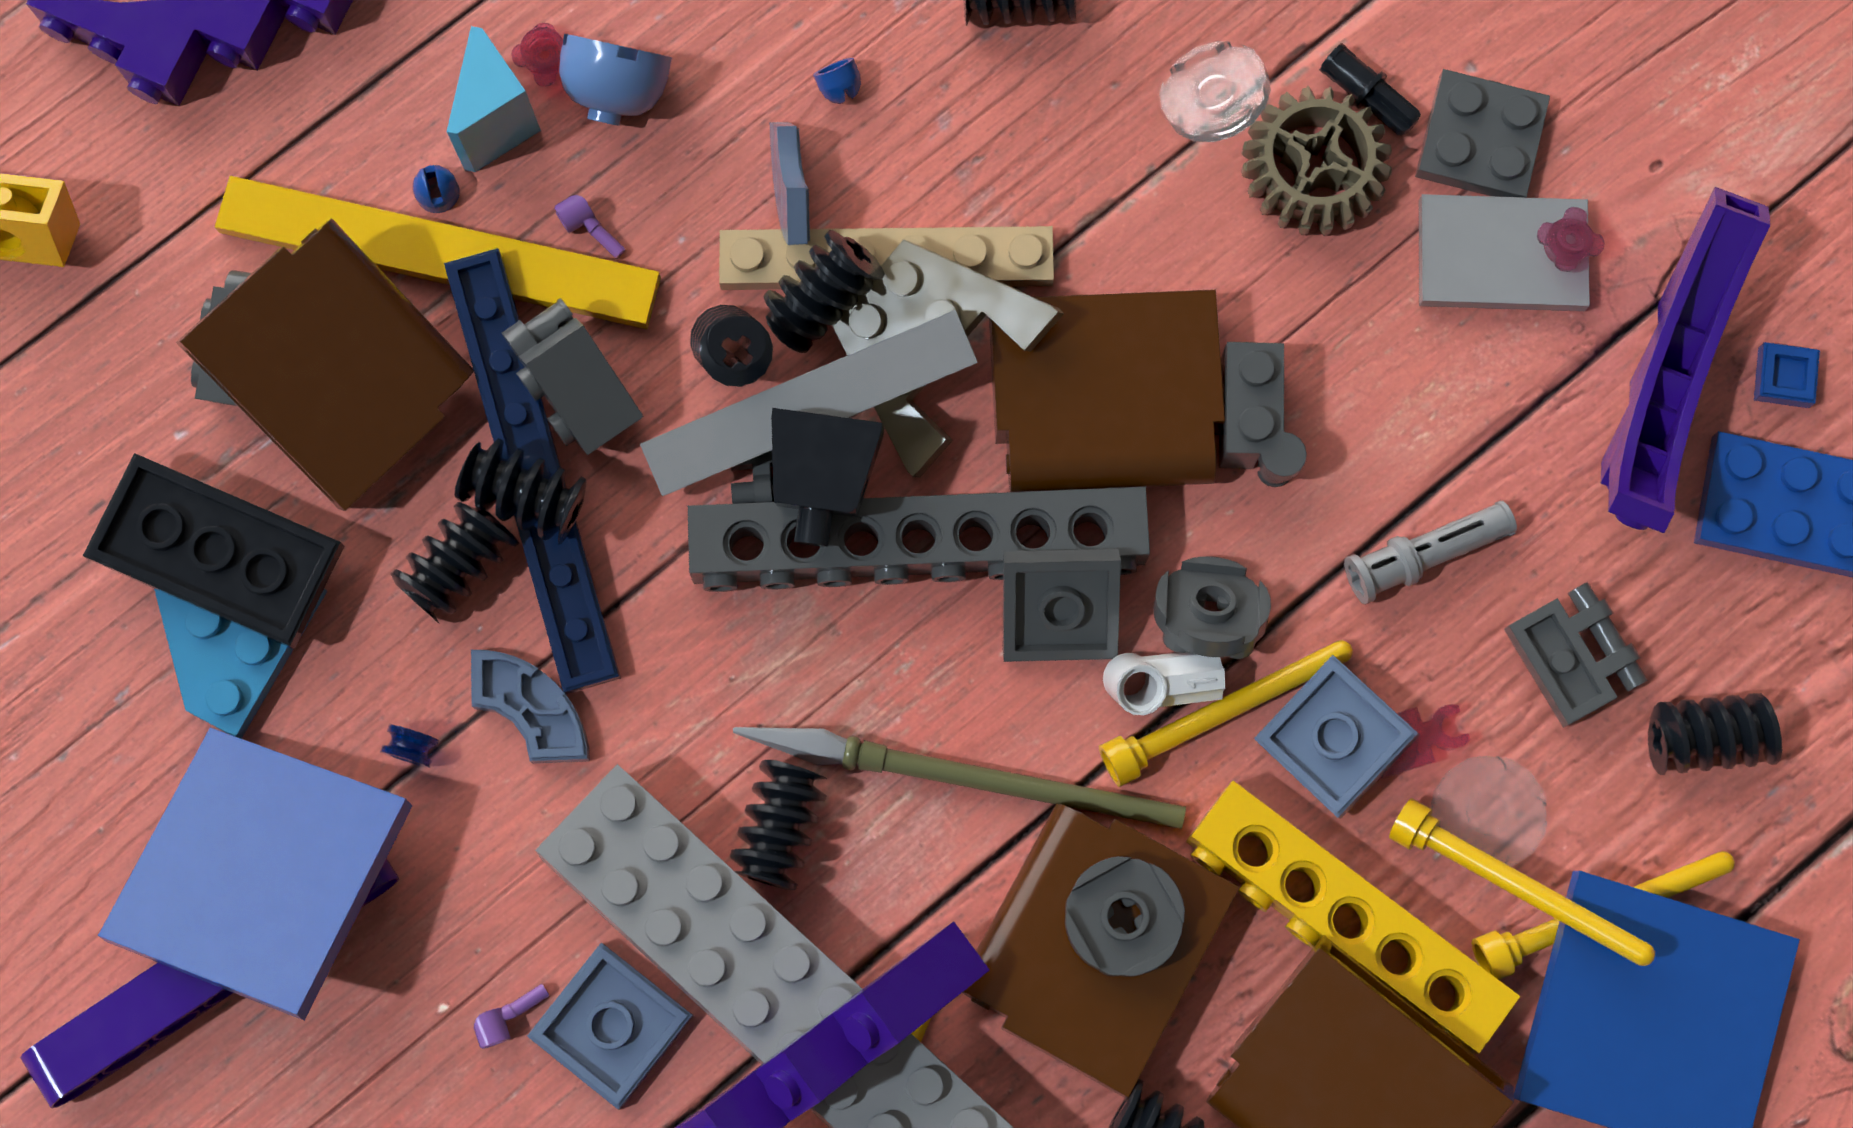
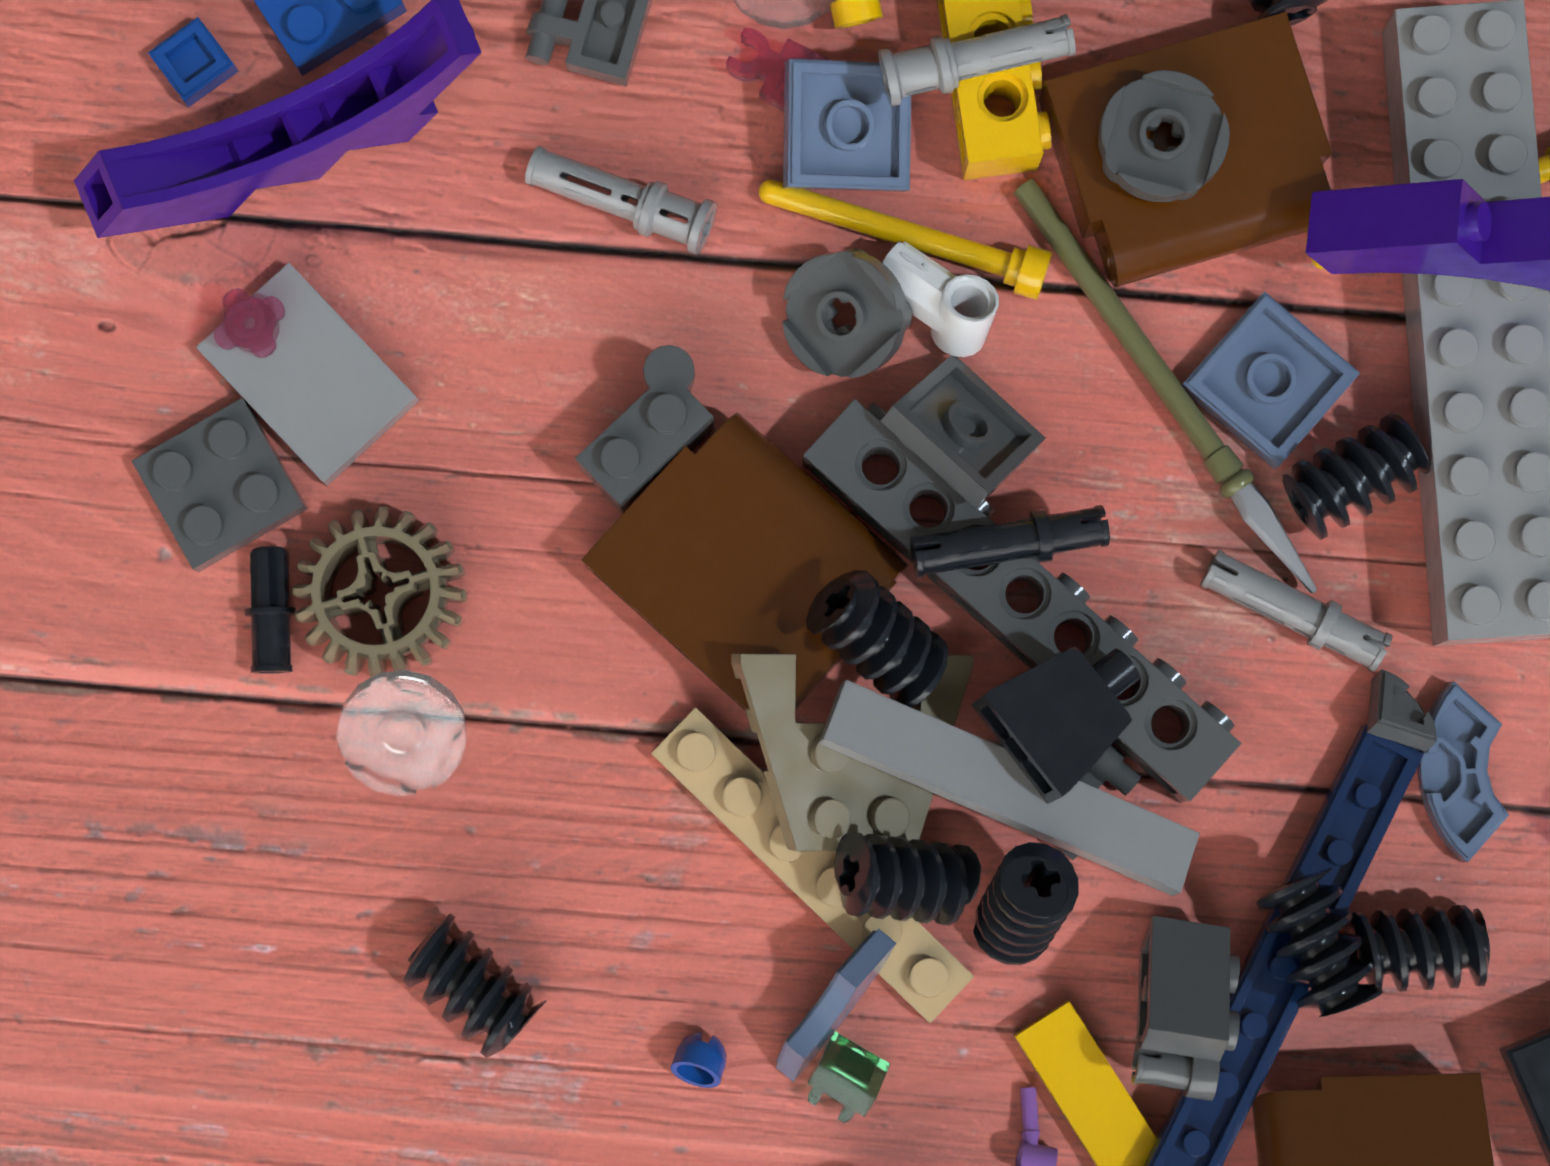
camera: 135 degrees left, 5 degrees up
(604, 702) = (1397, 714): none -> dark grey tile
(733, 705) = (1317, 621): none -> light grey pin
(740, 152) = (848, 1076): none -> clear green tile
(895, 845) = (1270, 380): none -> sand blue tile
(961, 552) = (1008, 541): none -> black pin
(983, 407) = (879, 637): none -> black piece
(1314, 826) = (946, 63): none -> light grey pin

